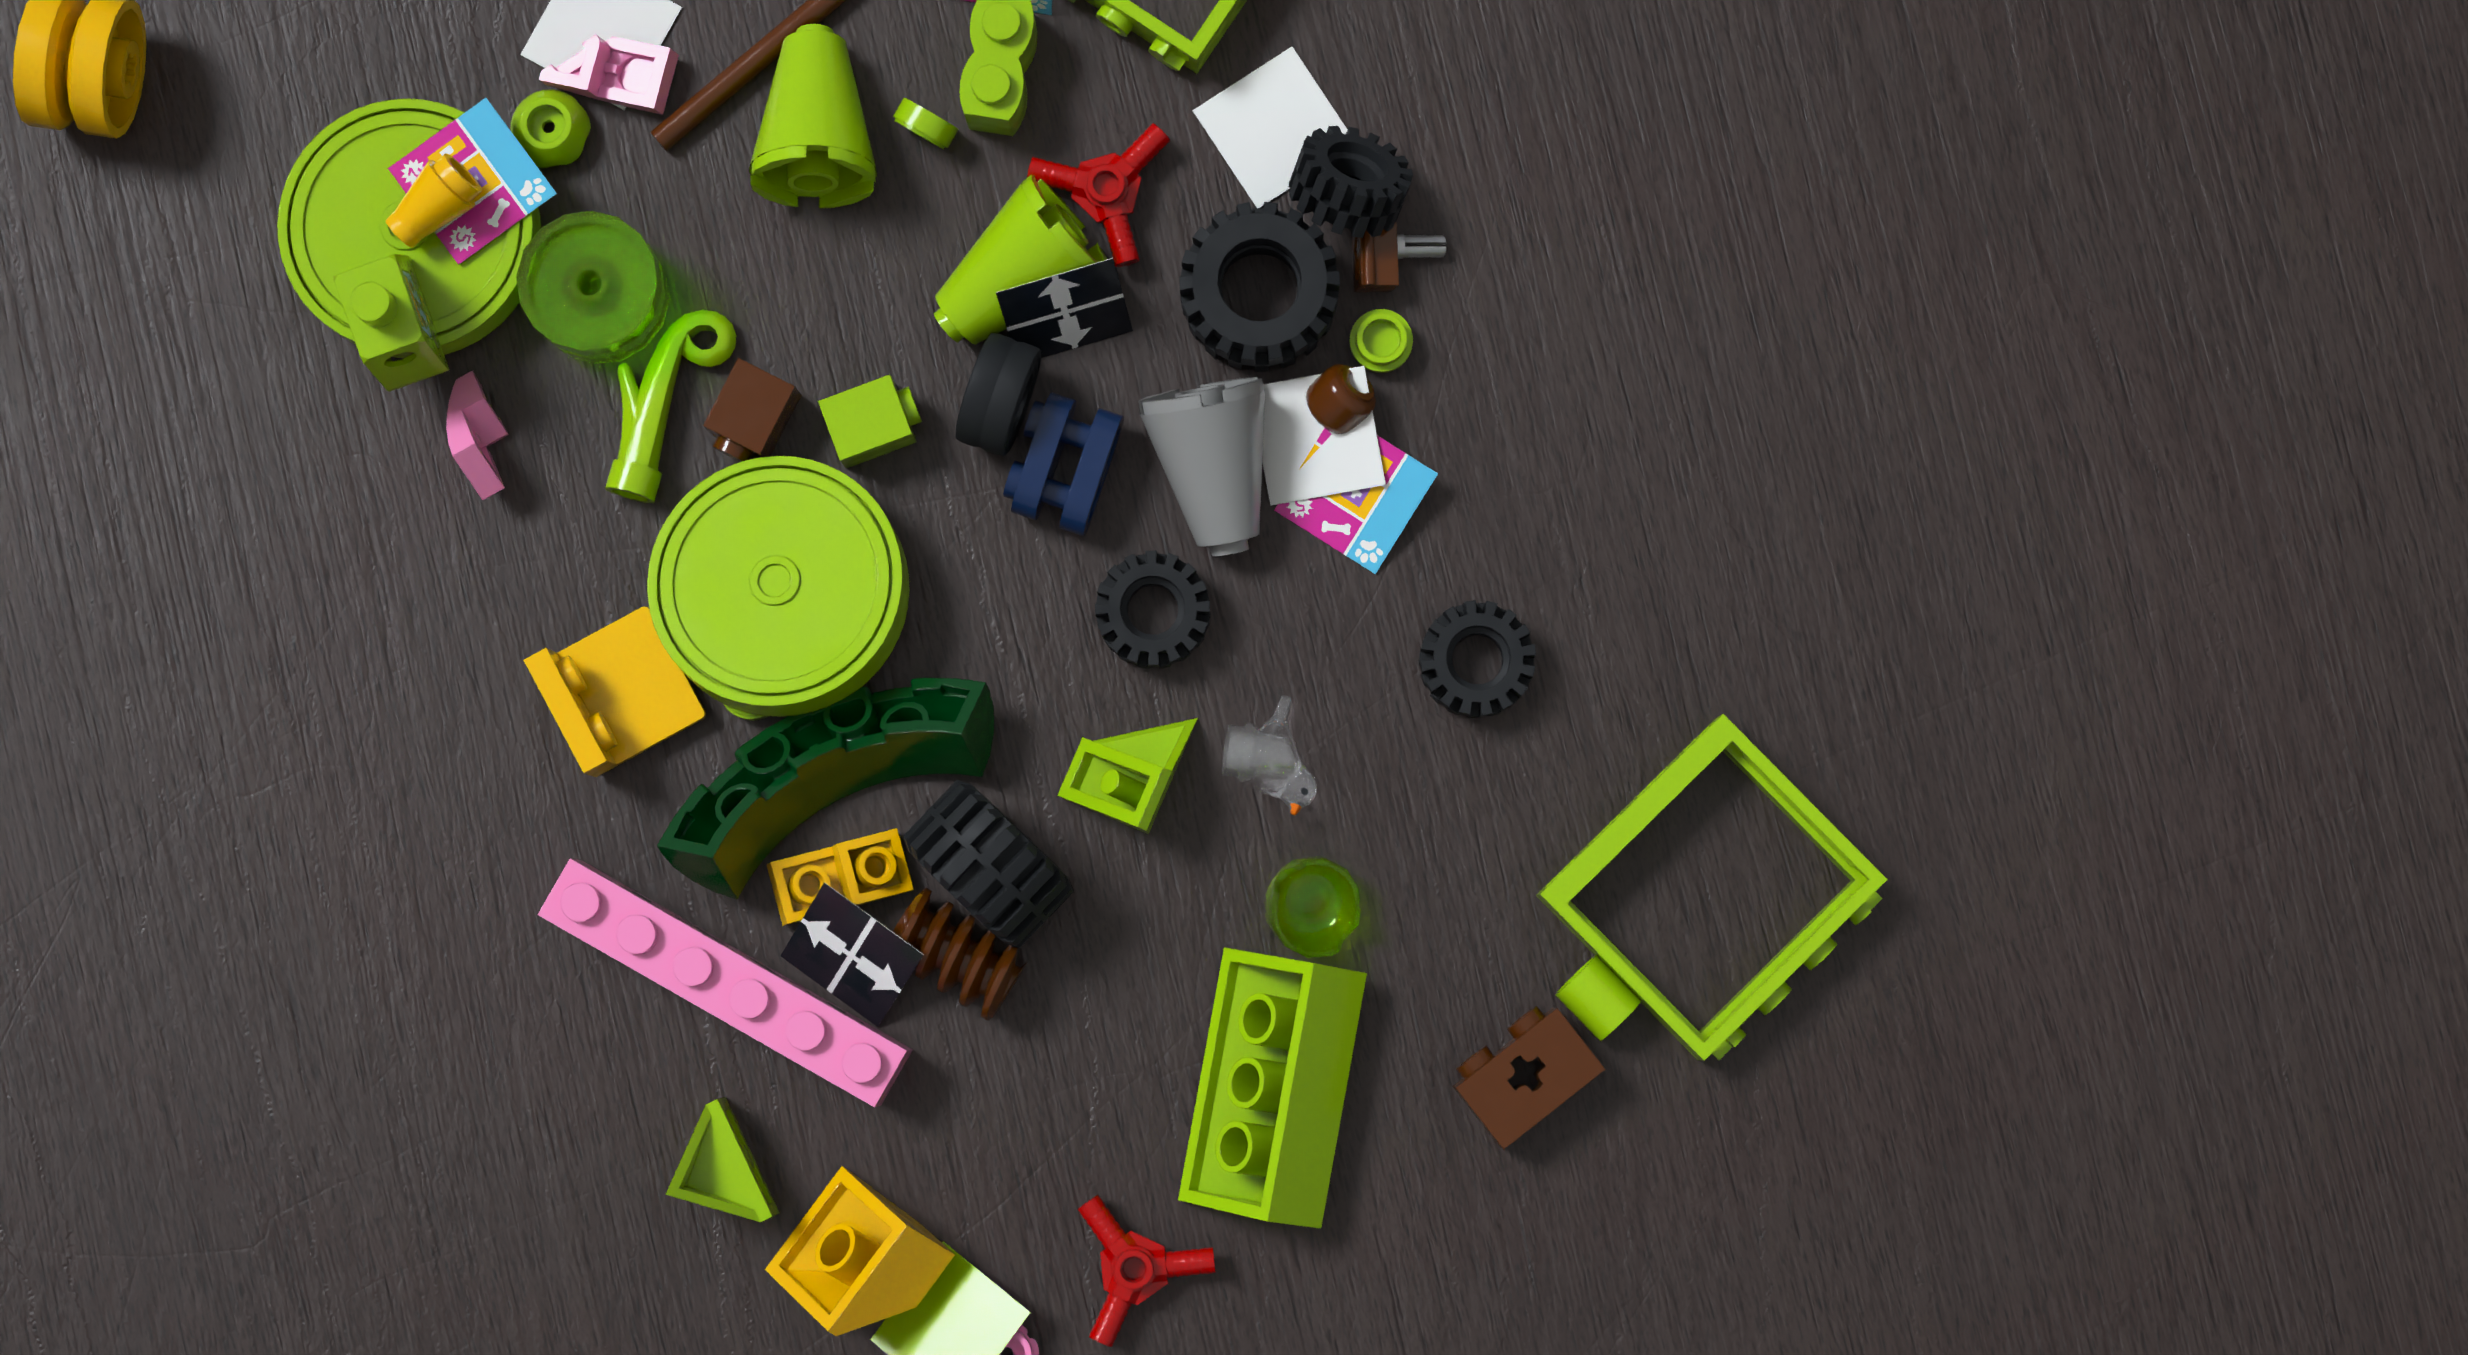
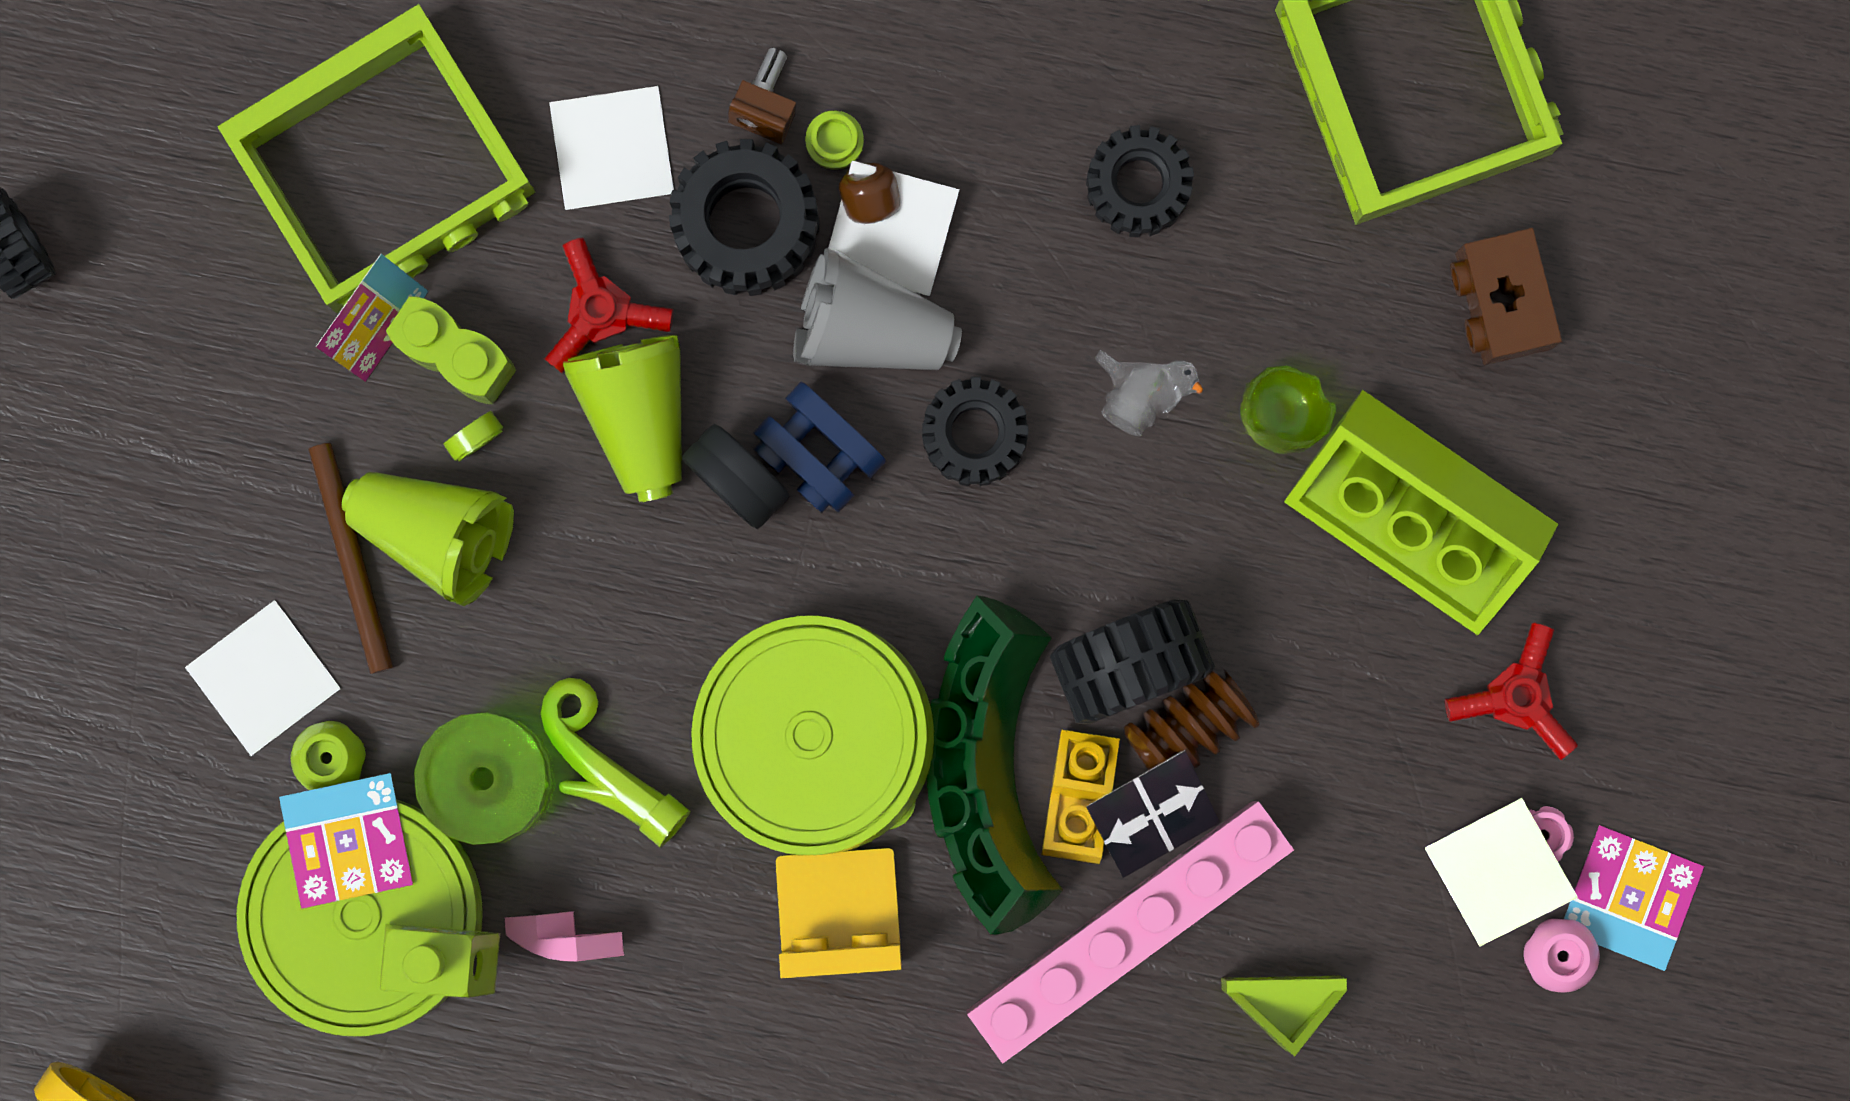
camera: 65 degrees left, 0 degrees up
(434, 199) = (349, 878): yellow cone -> none
(617, 73) = (307, 678): slope -> none
(751, 412) = (653, 694): reddish brown brick -> none
(857, 1257) = (1409, 924): yellow slope -> none
(870, 420) = (706, 595): lime brick -> none
(1067, 309) = (689, 385): black sticker -> none
(1127, 773) = (1103, 513): lime slope -> none
(1350, 181) = (691, 100): black tyre -> none
(1366, 520) = (980, 220): sticker -> none
(1598, 998) = (1467, 209): lime beam -> none

